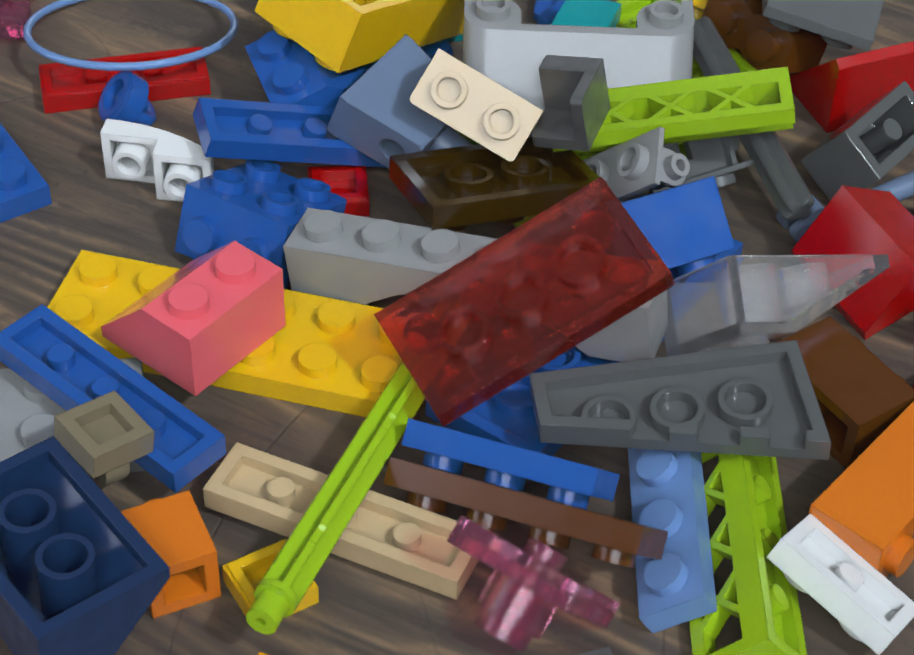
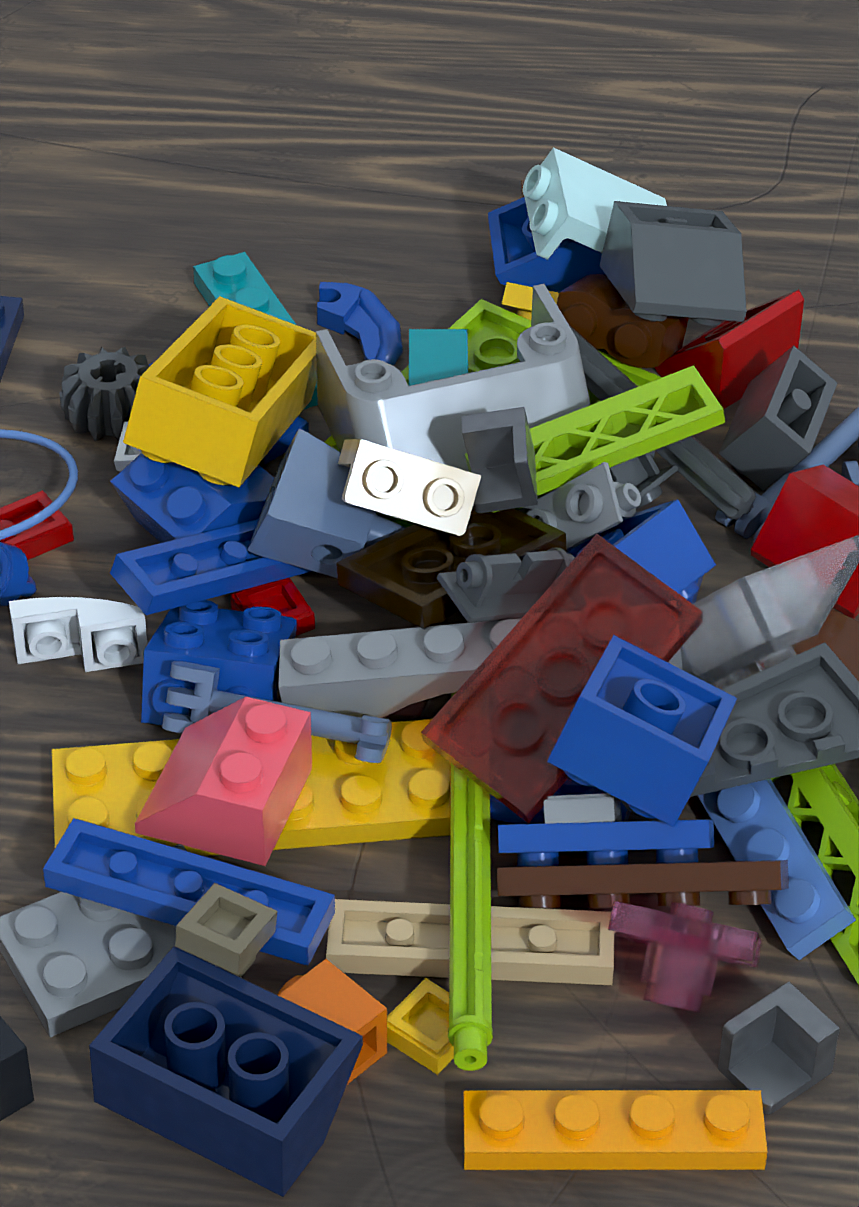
camera: 20 degrees left, 0 degrees up
(344, 309) = (368, 732): none -> sand blue hinge
(496, 427) = (582, 809): none -> light grey tile
(500, 203) = (503, 584): none -> dark grey hinge
(564, 365) = (642, 731): none -> blue slope

